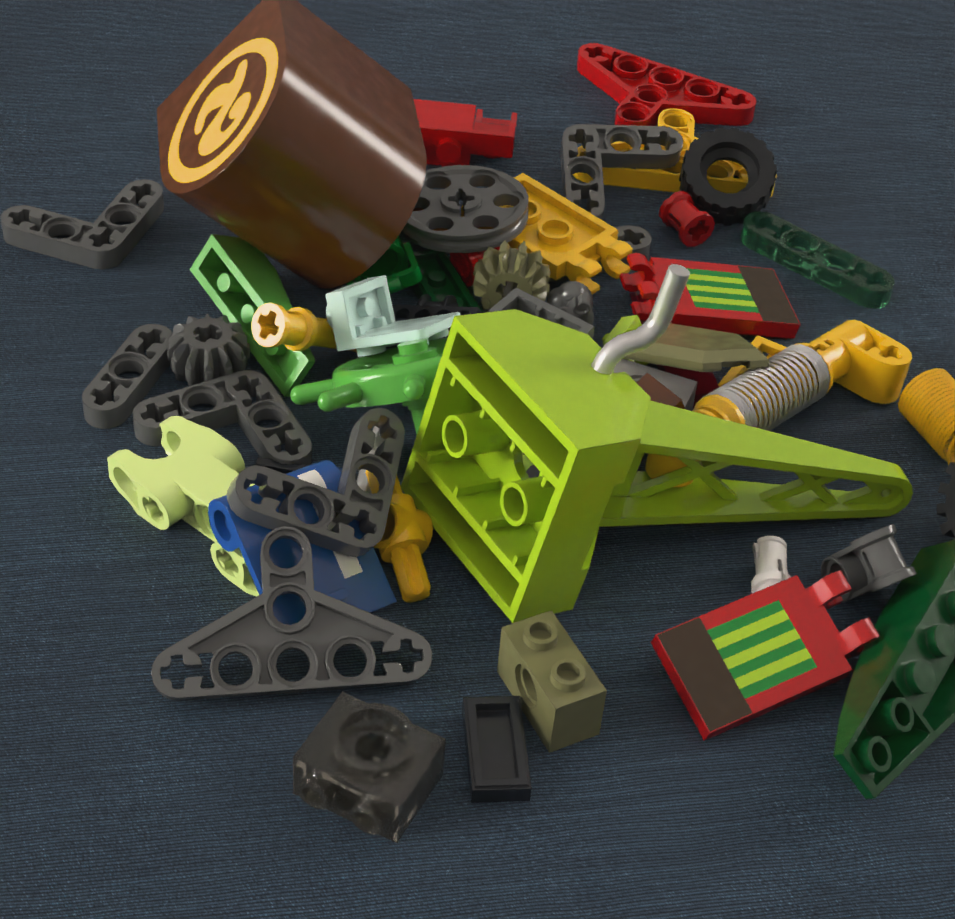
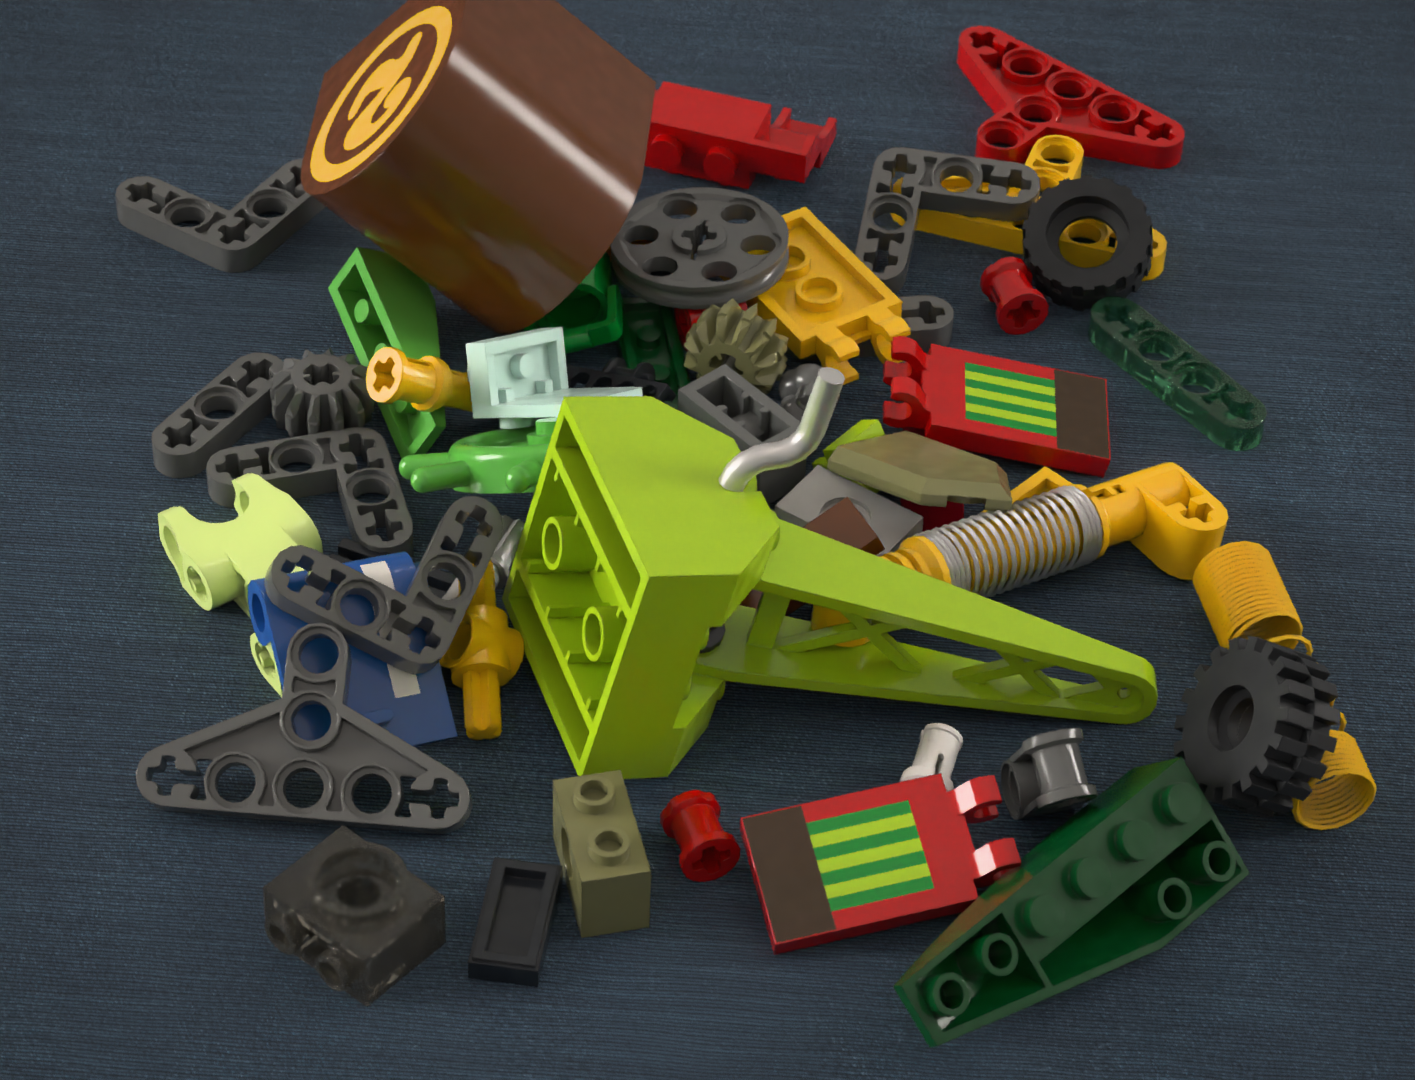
camera: 15 degrees right, 0 degrees up
(618, 653) = (703, 843): none -> red bush

